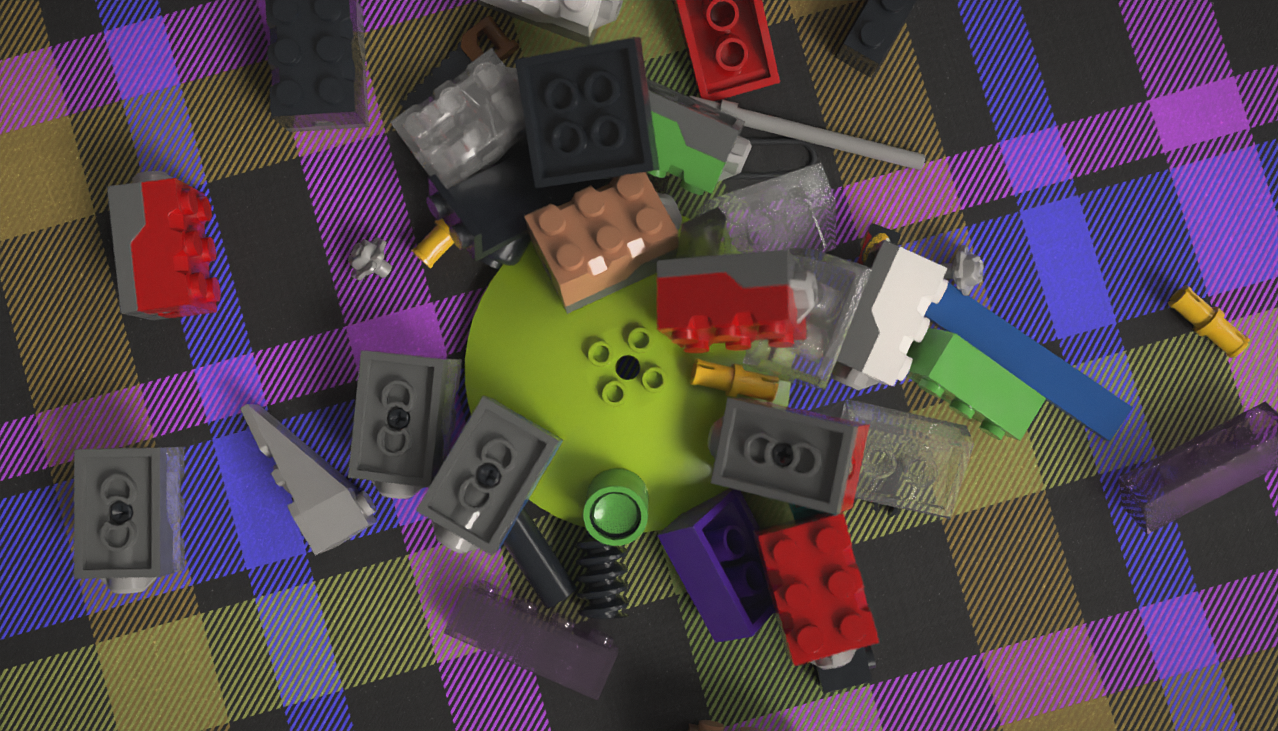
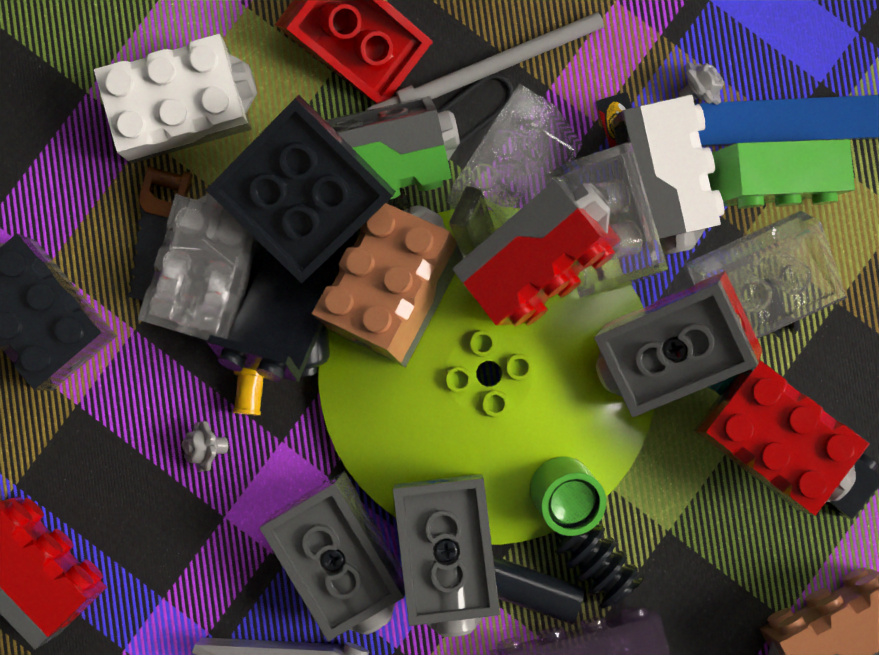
camera: 40 degrees left, 0 degrees up
(721, 565) = (689, 478): dark purple slope -> none
(734, 380) = (585, 317): yellow pin -> none

